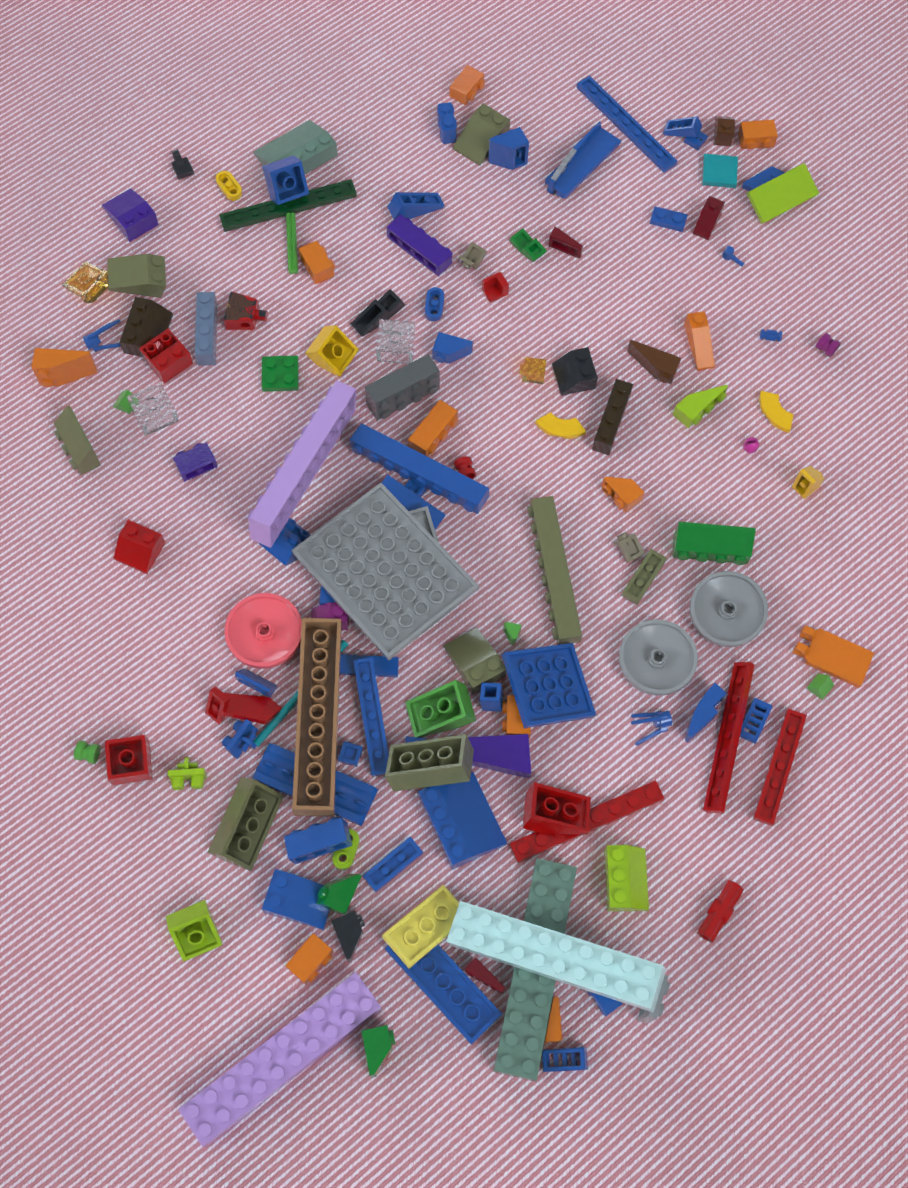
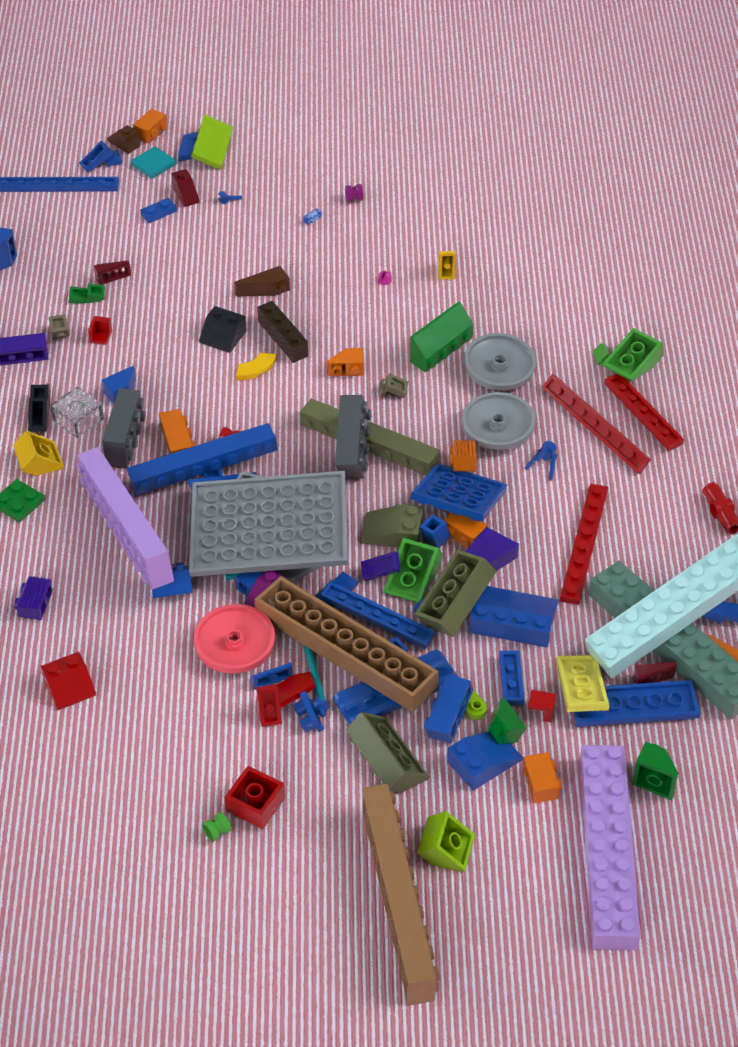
camera: 50 degrees left, 20 degrees down
(114, 931) = (400, 895): none -> medium nougat brick
(186, 773) = (304, 765): lime hips -> none
(349, 932) = (543, 738): black slope -> none
(381, 909) = (543, 702): none -> red panel
(422, 682) = (380, 566): none -> dark purple tile
(433, 305) = (71, 373): blue plate -> none
(512, 631) = (393, 491): bright green slope -> none
(528, 561) = (352, 436): none -> dark grey brick
(533, 370) = (194, 351): clear yellow brick -> none
(556, 811) = (560, 550): red slope -> none
(582, 161) = (56, 225): blue piece -> none
(594, 658) = (463, 456): none -> orange brick
(626, 878) = (648, 547): lime slope -> none
(644, 576) = (426, 393): olive plate -> none
(695, 405) = (323, 284): lime slope -> none
(700, 340) = (273, 250): orange slope -> none
(705, 711) = (563, 424): blue slope -> none
(763, 706) = (593, 393): blue slope -> none
(774, 411) = (379, 251): yellow tile -> none
(834, 655) = (587, 334): orange tile -> none
(834, 714) = (634, 355): none -> bright green slope

